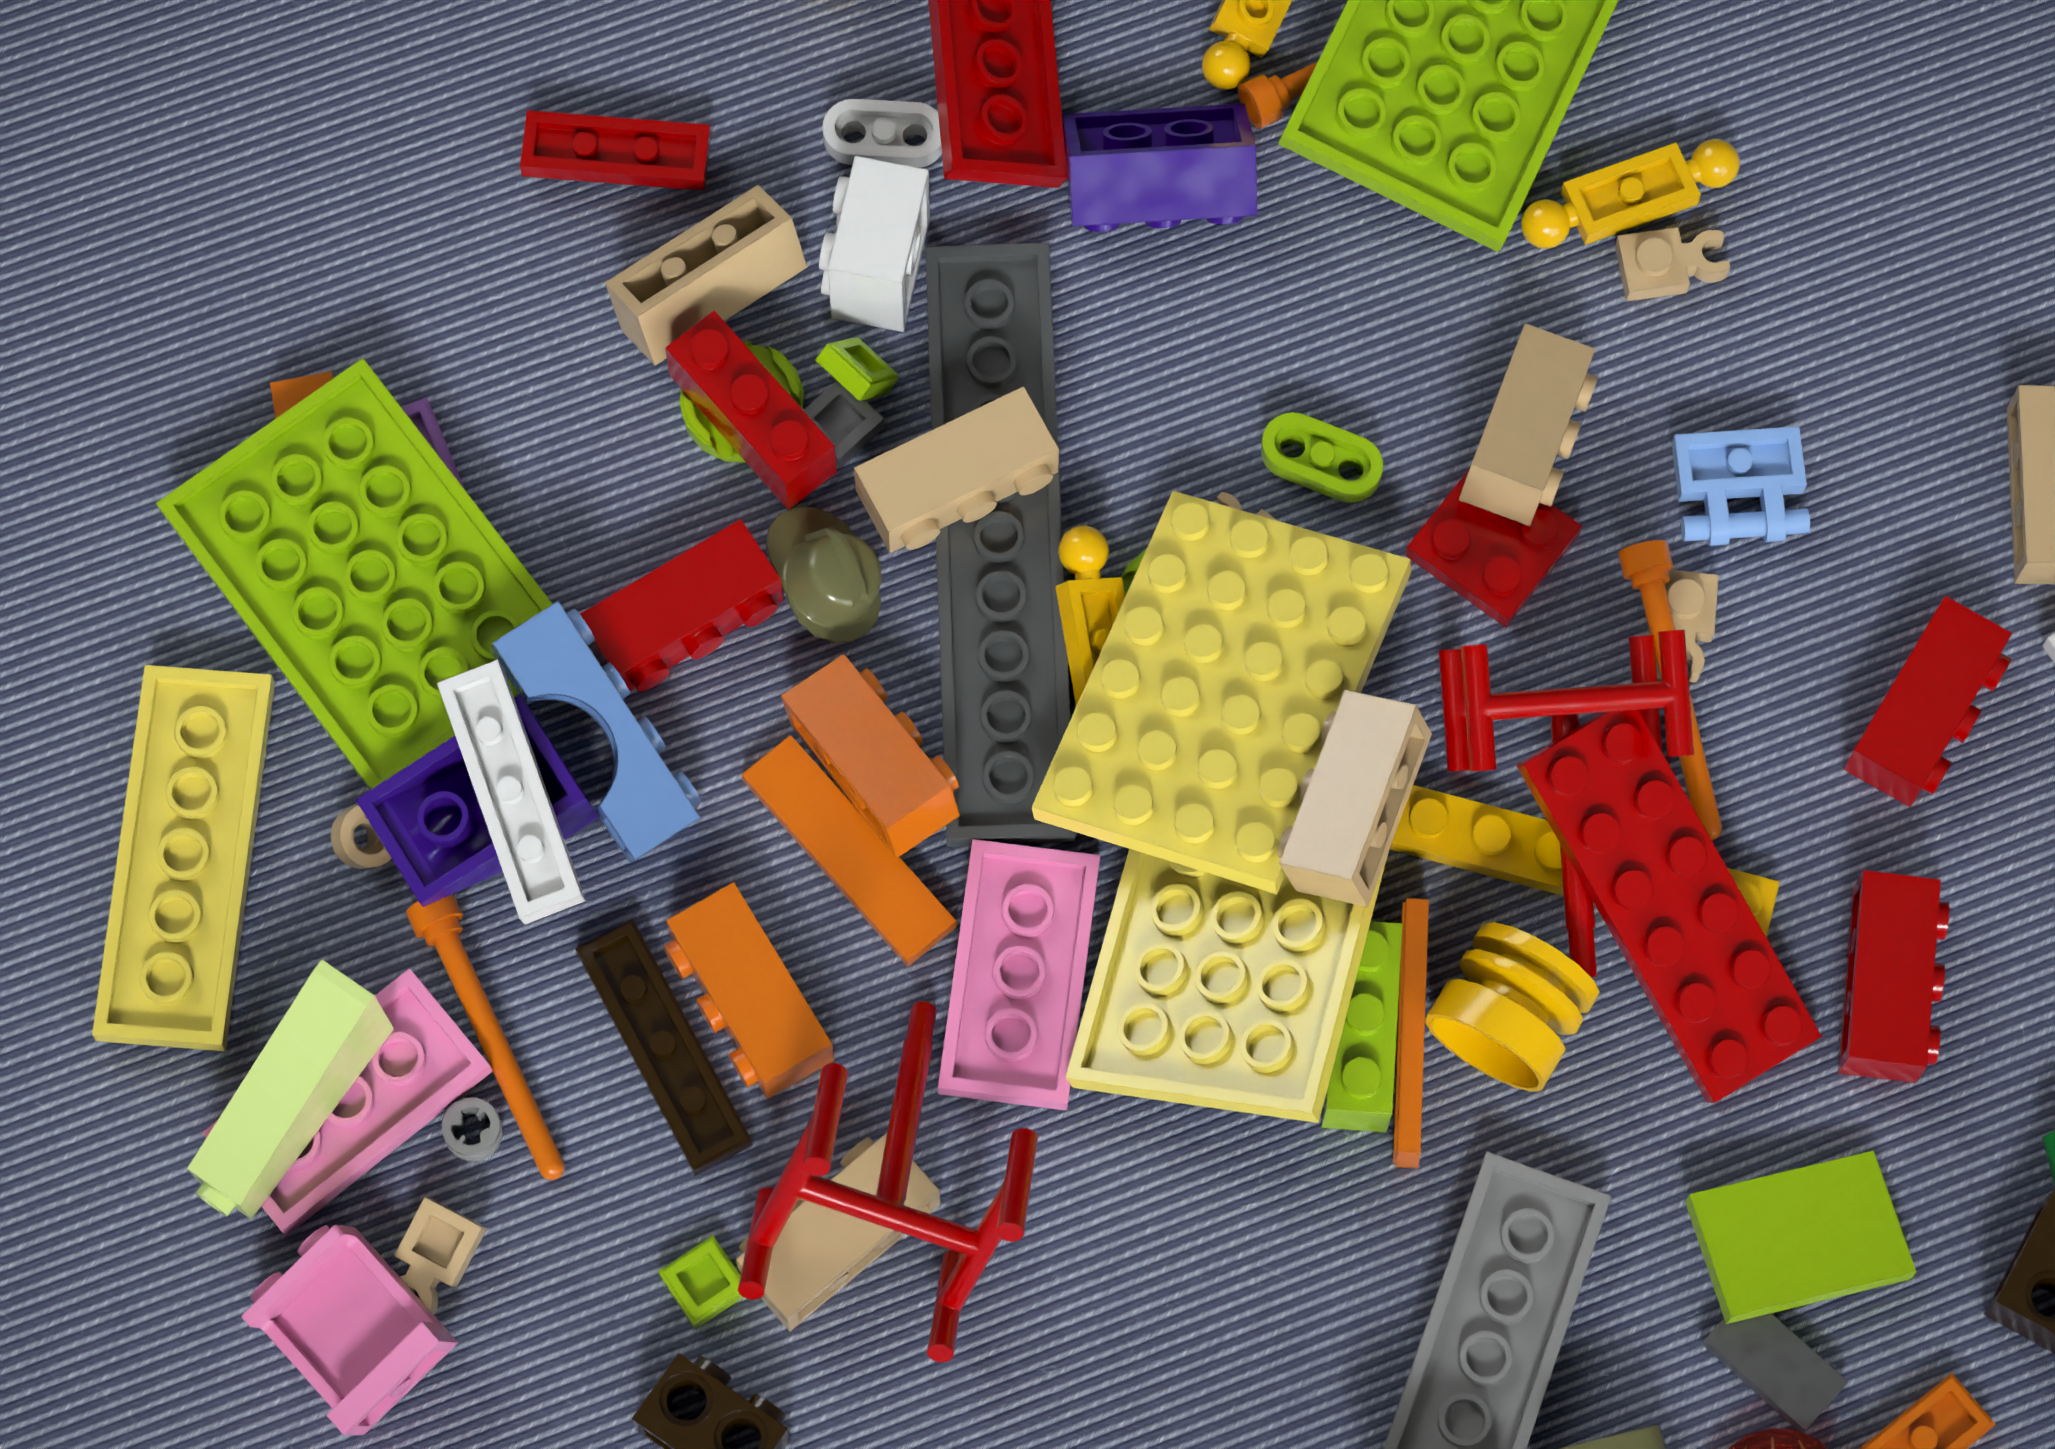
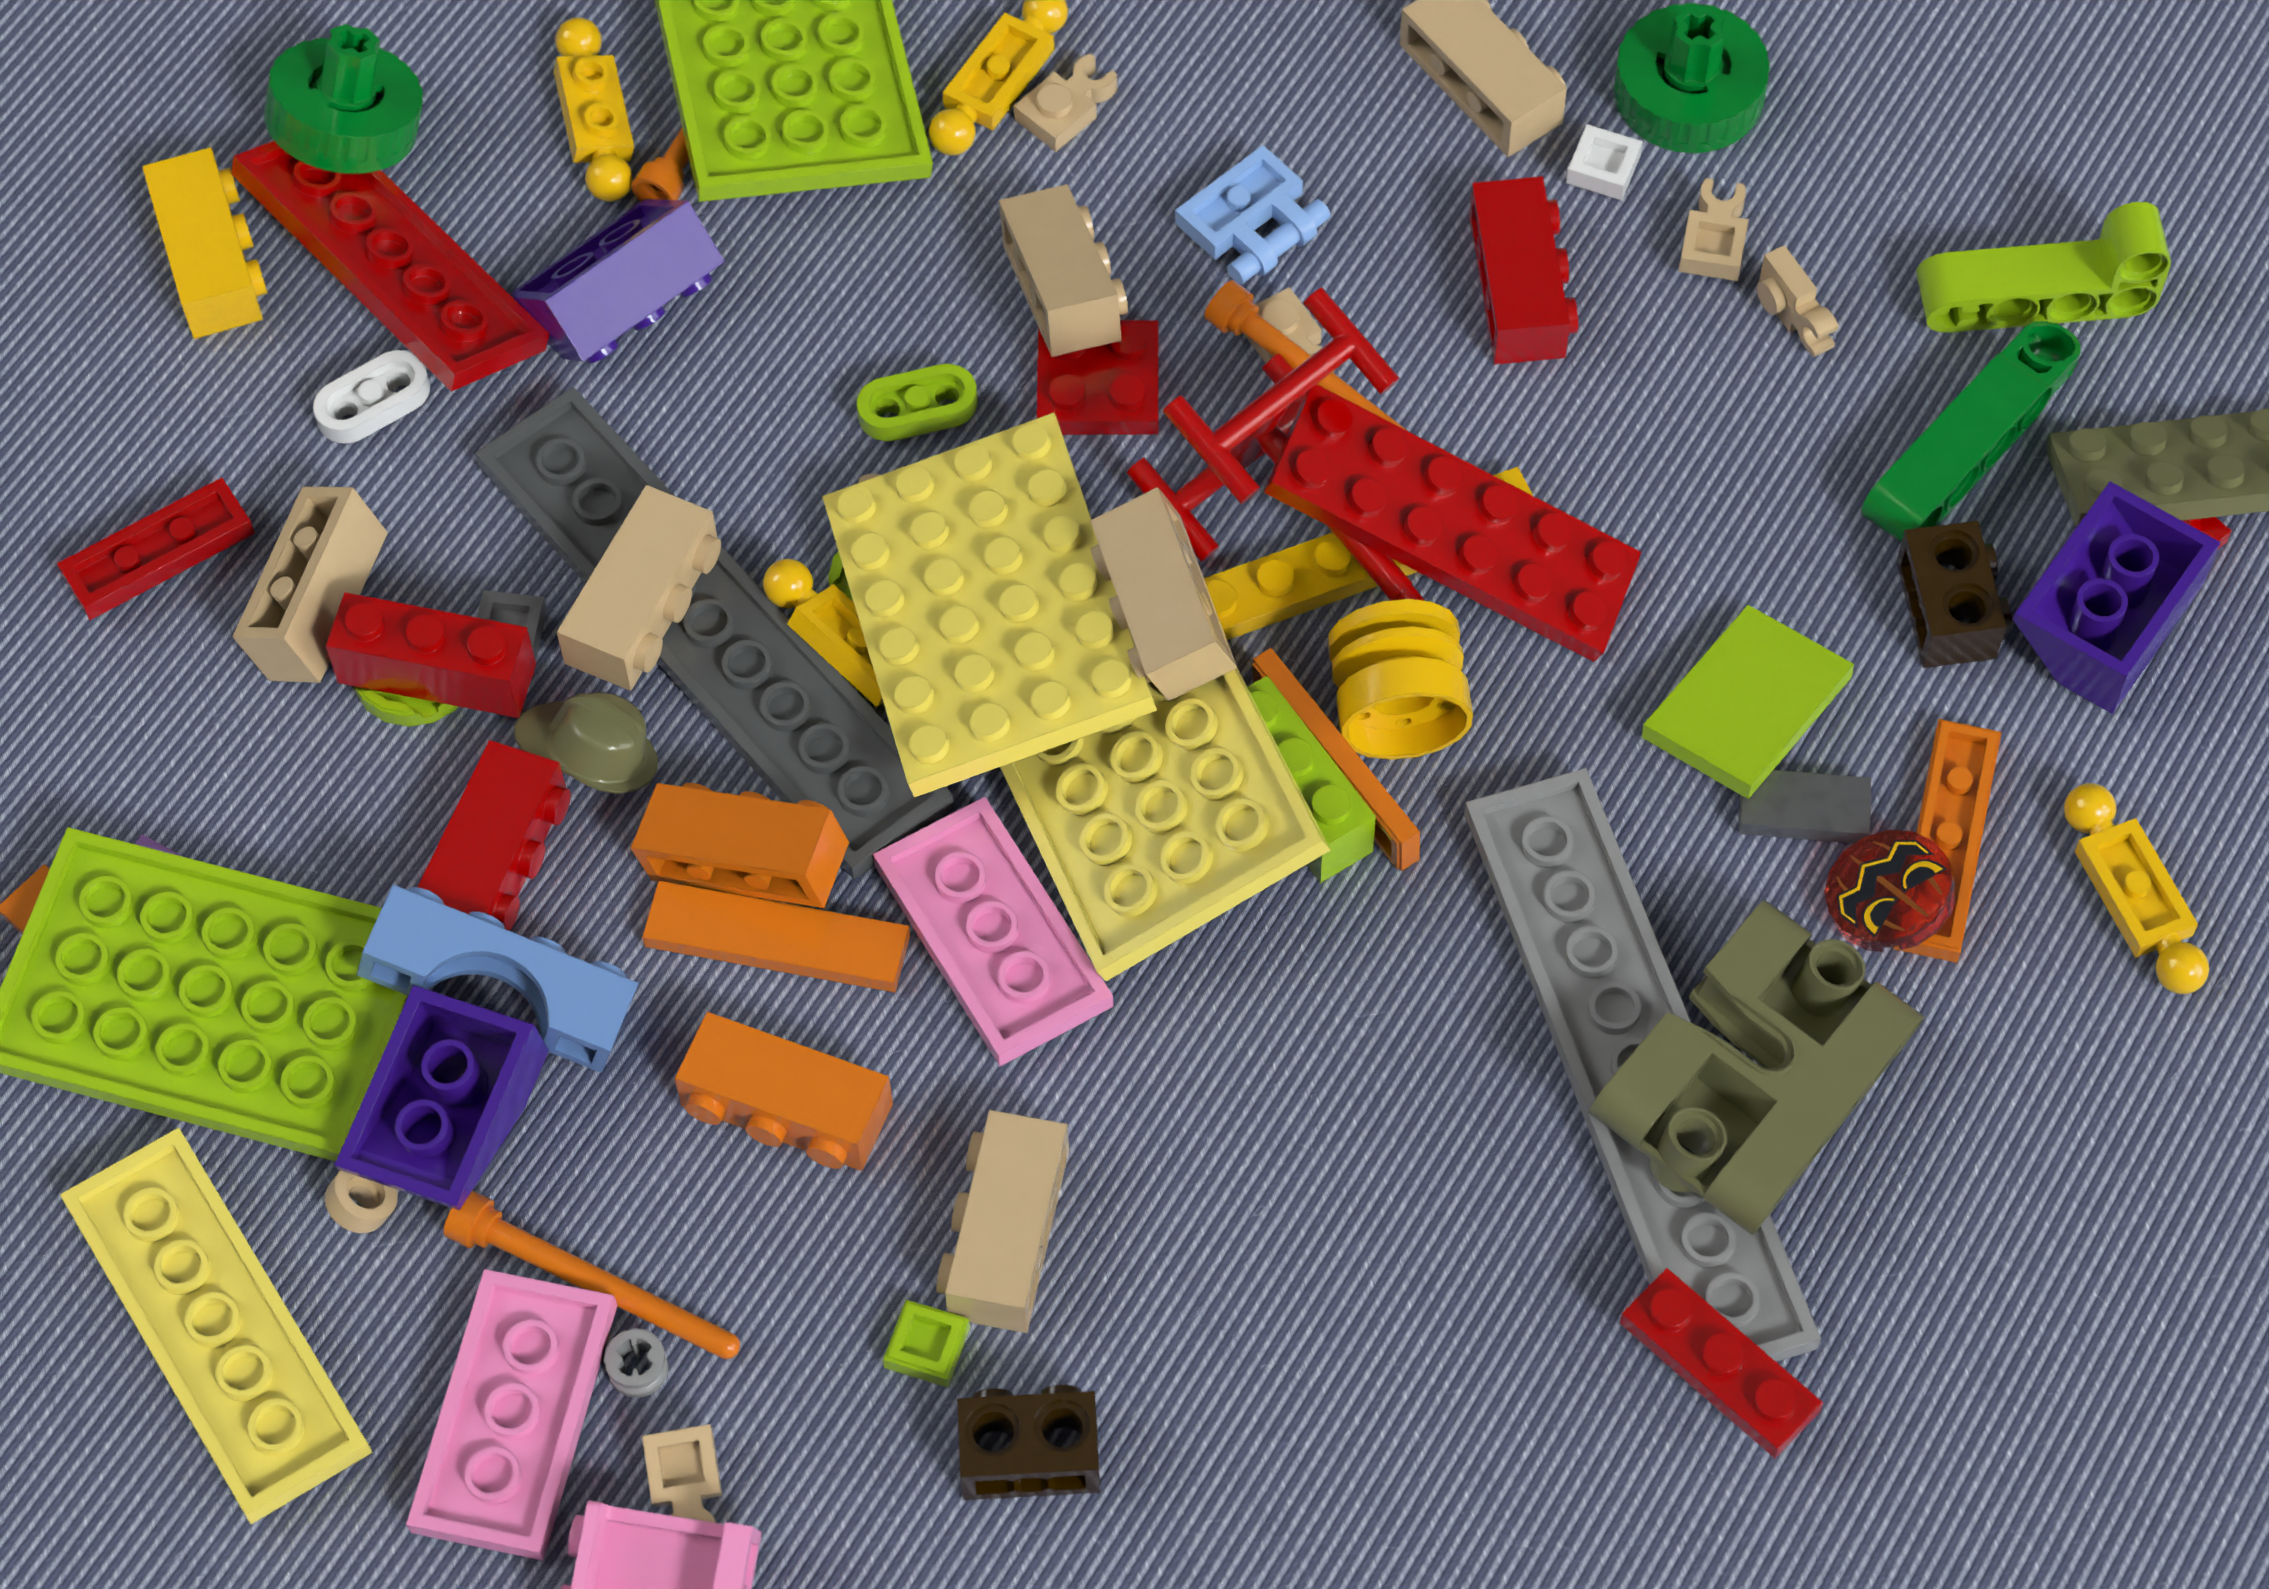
camera: 35 degrees left, 10 degrees down
(290, 1091) = (463, 1422): yellowish green slope -> none
(511, 792) = (469, 1057): white plate -> none
(664, 1047) = (745, 1188): dark brown tile -> none
(813, 1157) = (1042, 1146): red piece -> none
(857, 368) = (491, 575): lime tile -> none
(876, 243) = (435, 469): white brick -> none
(1892, 977) = (1656, 474): red brick -> none

